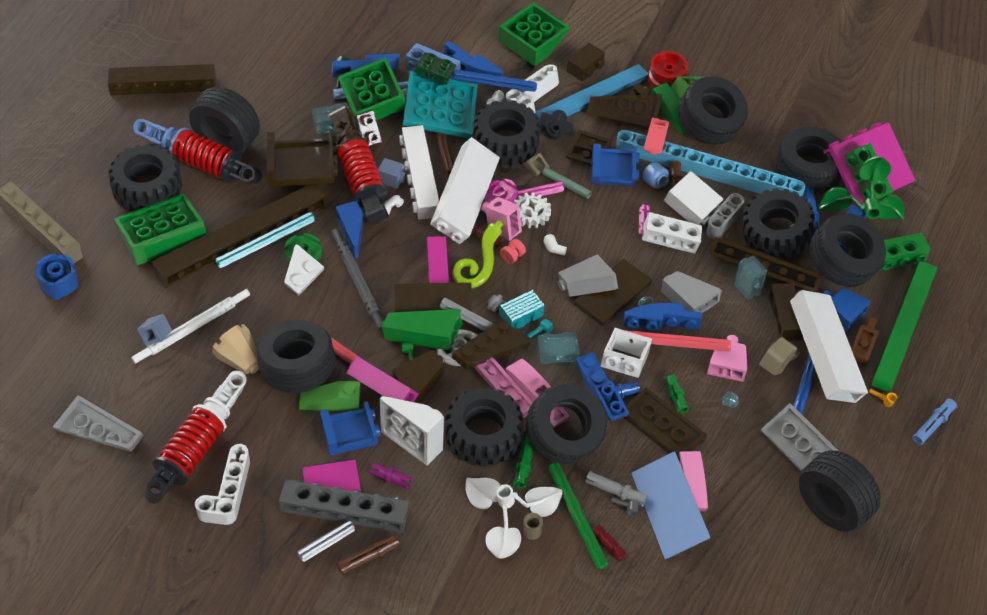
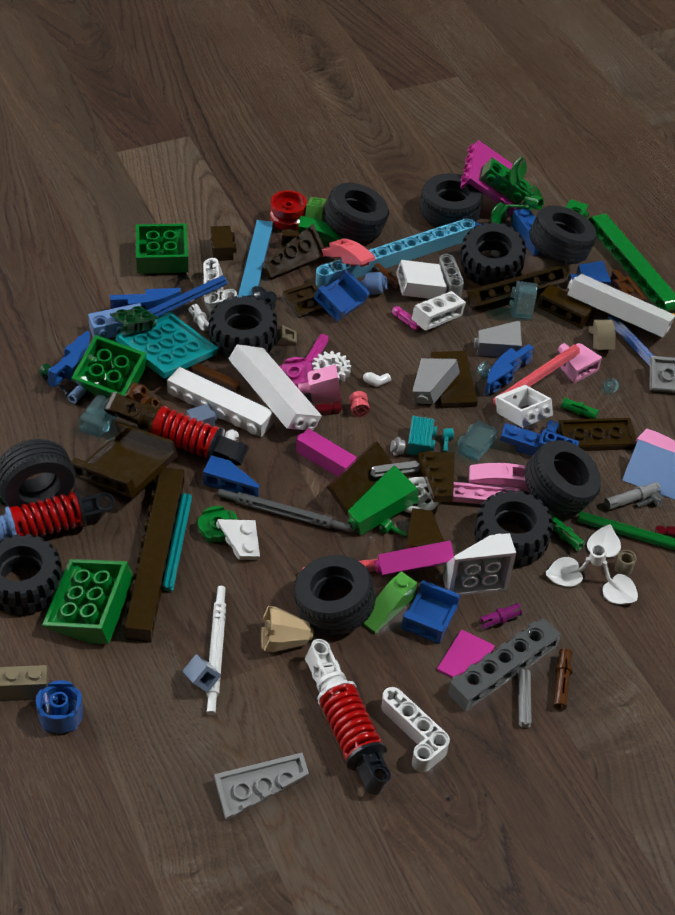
camera: 50 degrees left, 5 degrees down
(490, 235) = (335, 406): lime plant -> none
(571, 185) = (333, 331): sand green piece -> none

